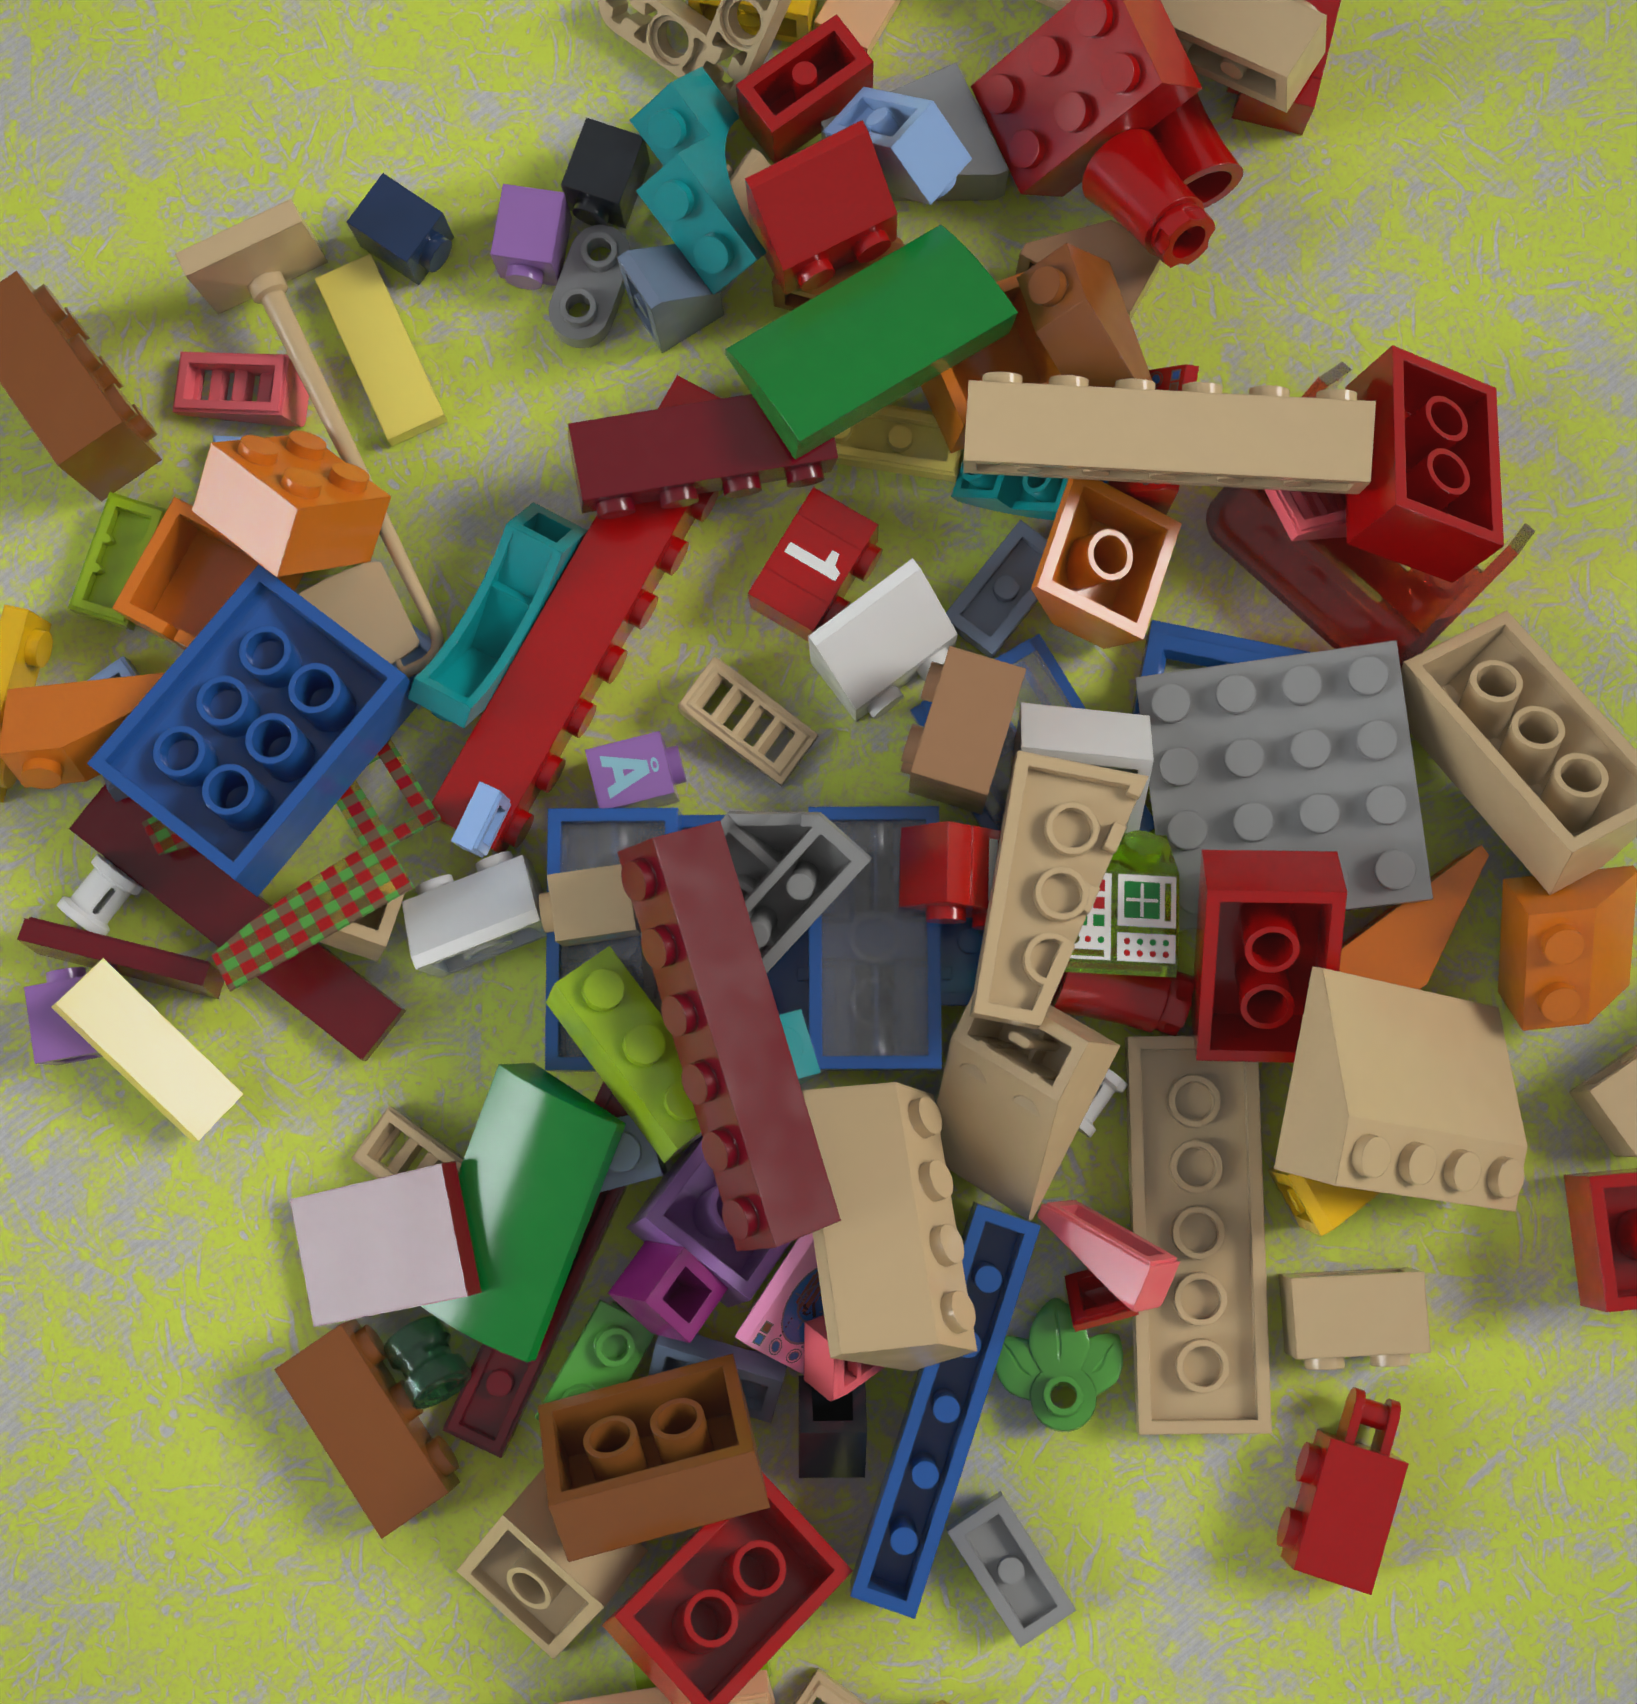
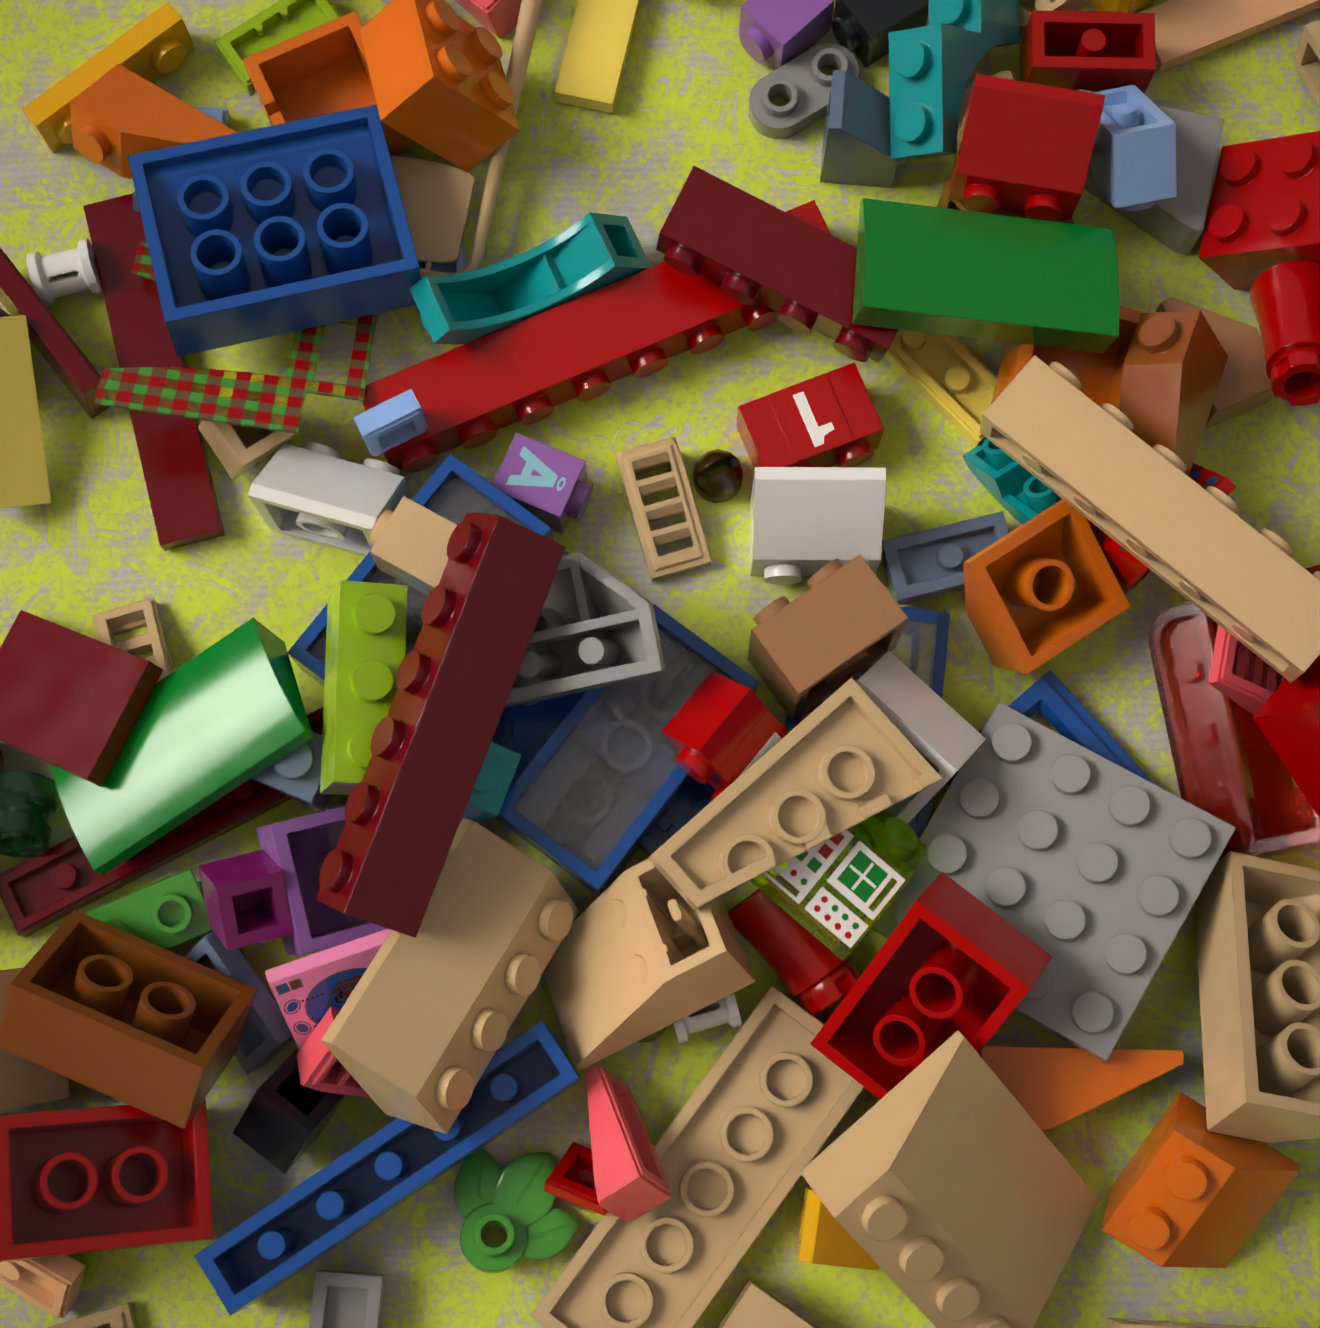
camera: 30 degrees right, 5 degrees down
(781, 664) = (722, 486): none -> dark brown hinge

